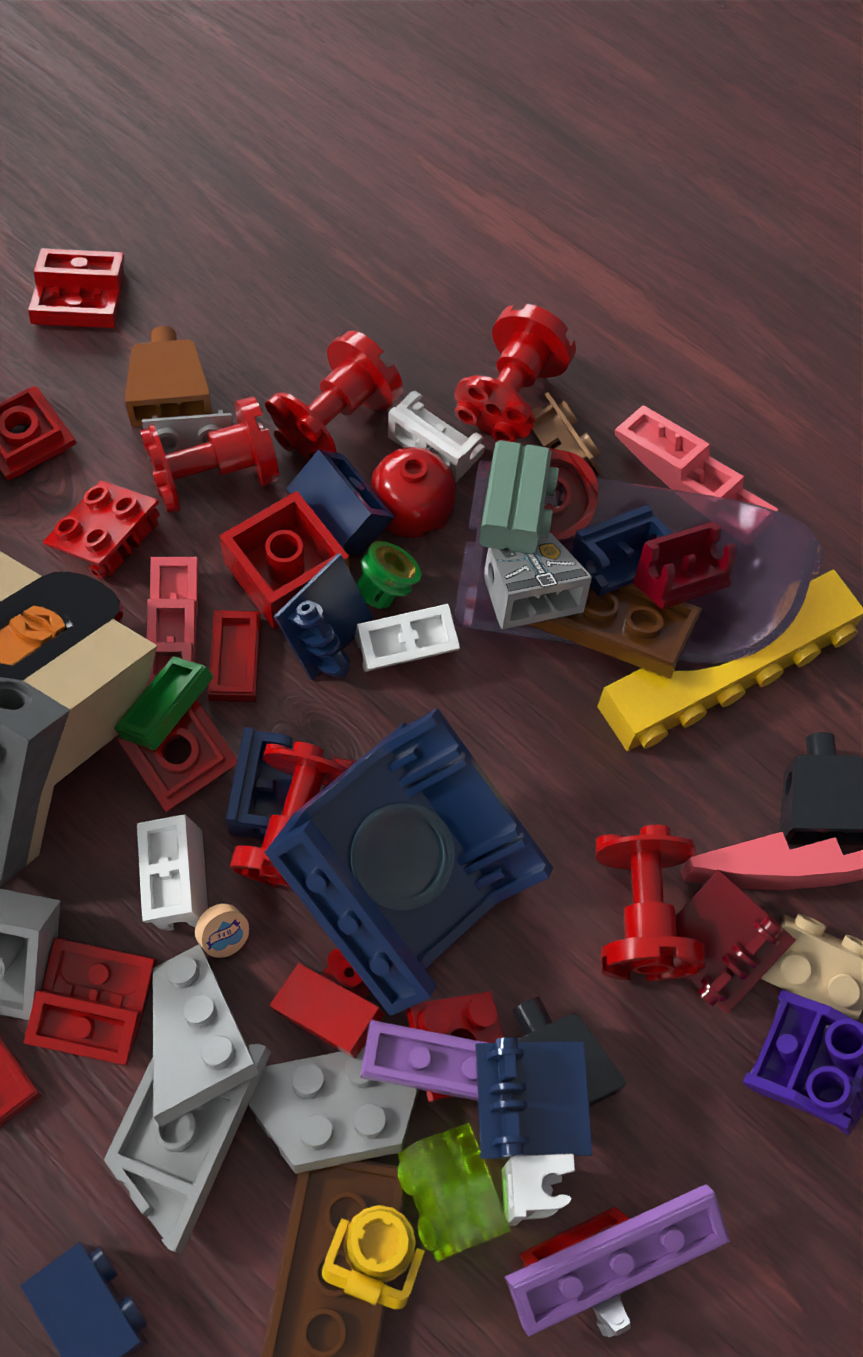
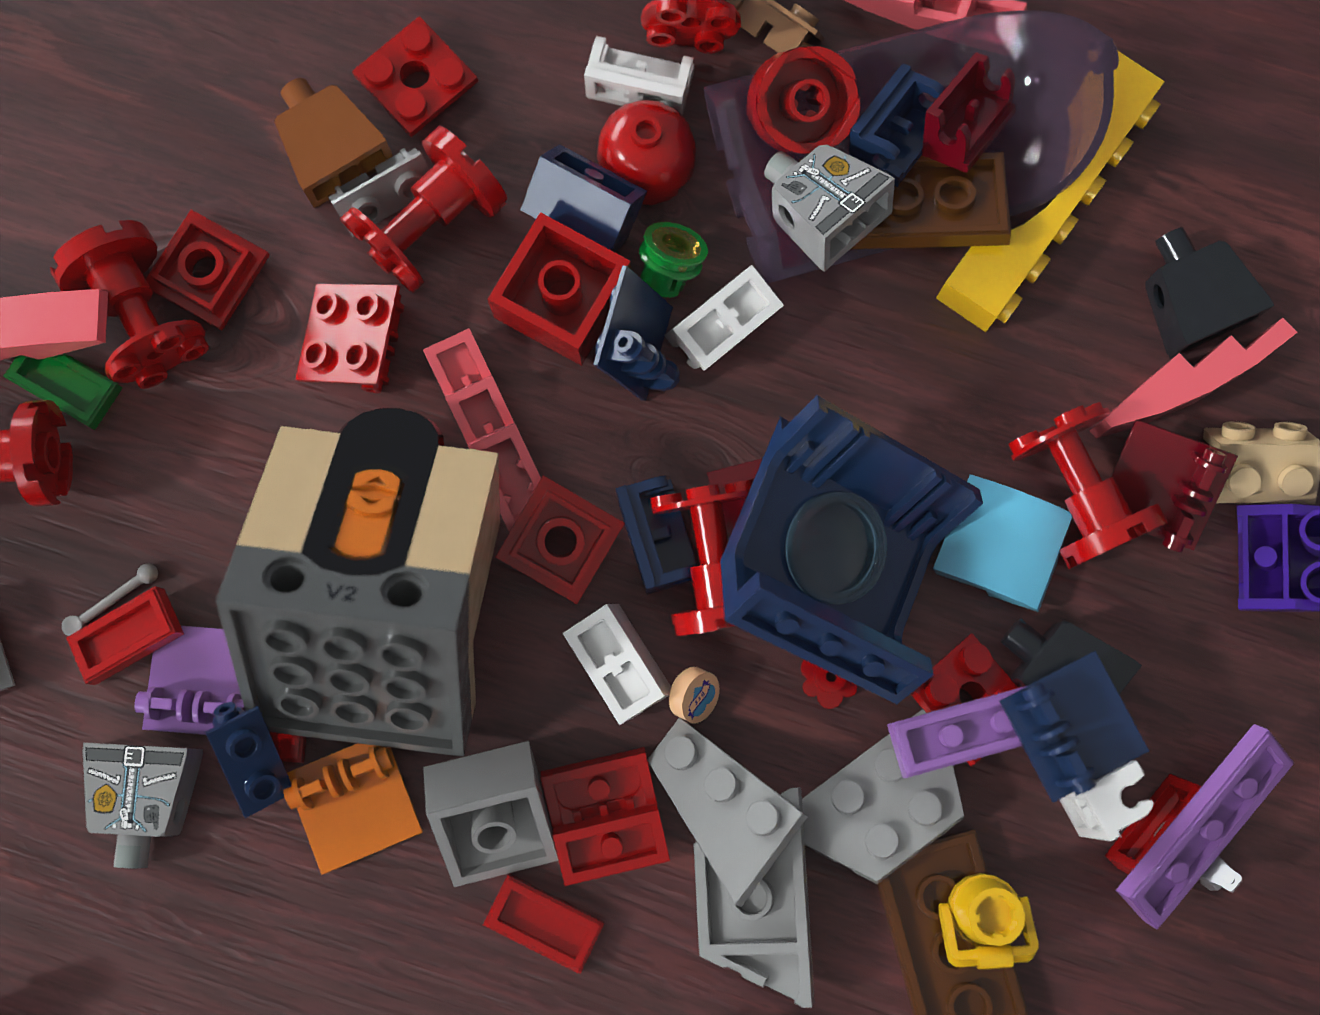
camera: 20 degrees left, 15 degrees up
(77, 288) = (167, 72): red slope -> none
(163, 703) = (526, 501): green tile -> none
(234, 656) = (557, 412): red tile -> none
(262, 347) = (411, 51): none -> red piece
(326, 1010) = (831, 723): red tile -> none
(355, 380) = (531, 52): red piece -> none
(451, 1193) = (1028, 836): clear neon green brick -> none
(516, 497) = (784, 125): sand green brick -> none
(556, 929) = (1006, 545): none -> medium azure slope

